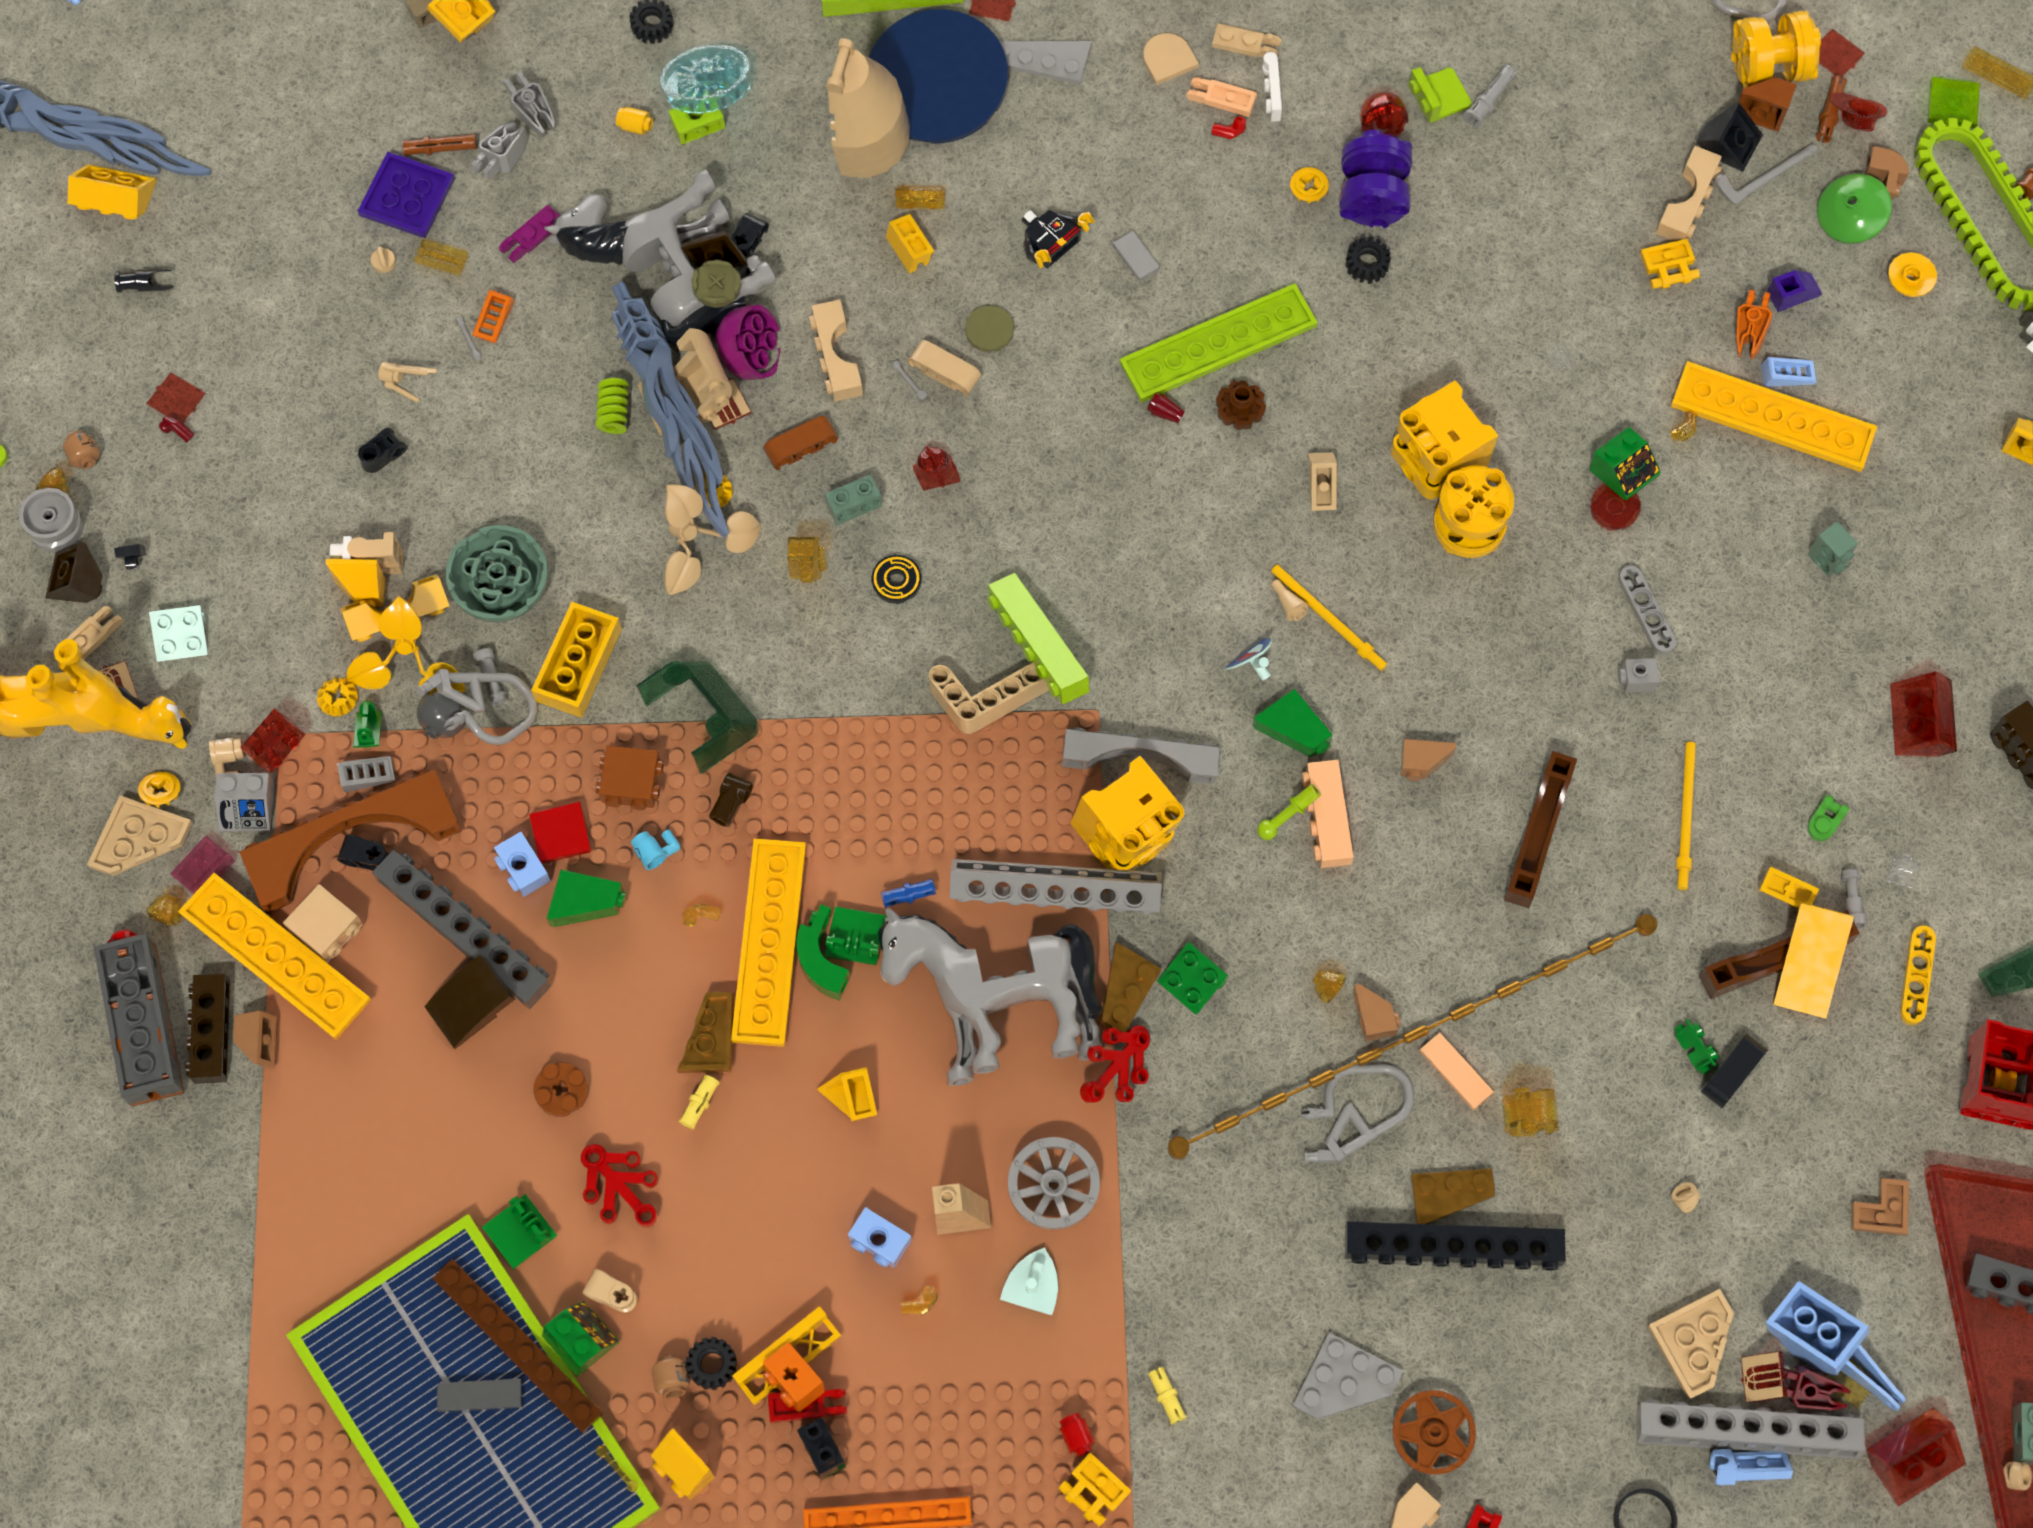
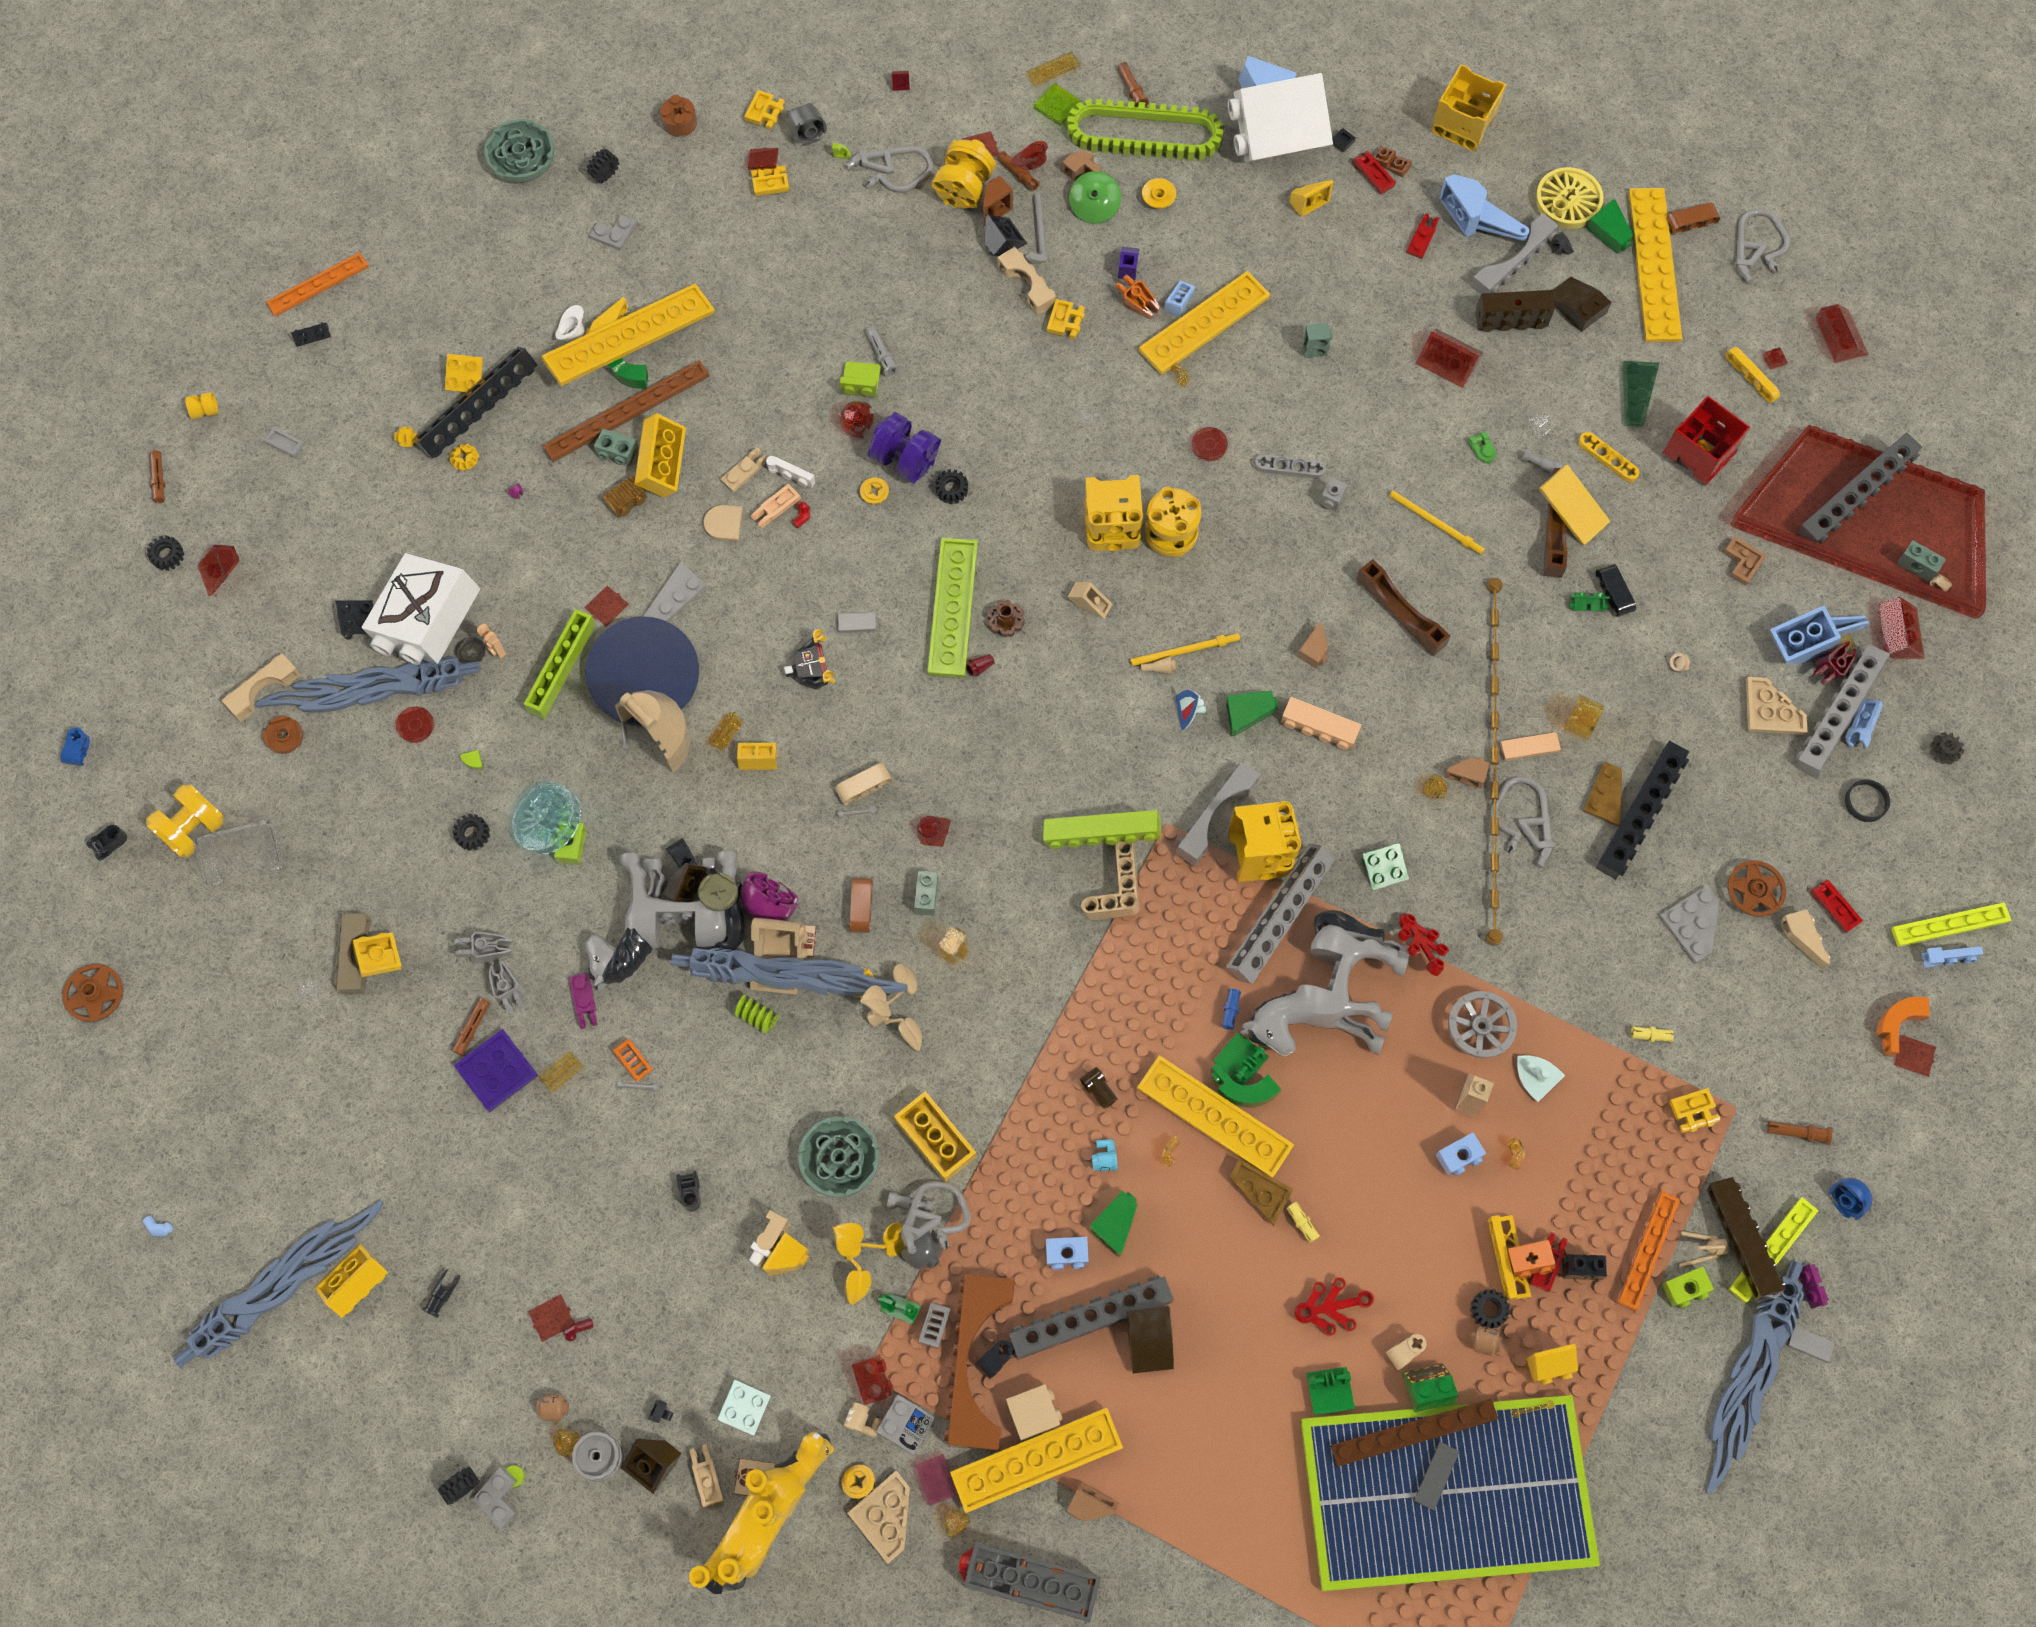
camera: 60 degrees left, 0 degrees up
(215, 1067) = (1095, 1545): dark brown brick -> none
(340, 706) = (859, 1328): yellow gear -> none
(383, 260) = (537, 1113): tan tile -> none
(393, 373) = (632, 1151): tan plant -> none
(425, 598) = (824, 1216): yellow arch -> none
(560, 833) = (1056, 1214): red tile -> none
(568, 1102) = (1255, 1309): dark orange plate -> none
(629, 777) = (1046, 1145): dark orange brick -> none
(634, 120) = (542, 884): yellow brick -> none
(728, 727) = (1045, 1053): clear green windscreen -> none
(843, 376) = (830, 852): tan arch -> none
(851, 1094) = (1352, 1119): yellow slope -> none
(896, 565) = (994, 908): black tile -> none
(989, 328) = (851, 741): olive tile -> none
(1076, 1434) = (1654, 1101): red brick -> none
(1127, 987) = (1370, 908): pearl gold wing -> none
(1268, 828) = (1307, 766): lime pin -> none
(1625, 464) = (1188, 420): green slope -> none
(1764, 1377) = (1816, 683): piece -> none
(1787, 888) = (1519, 493): yellow hinge -> none

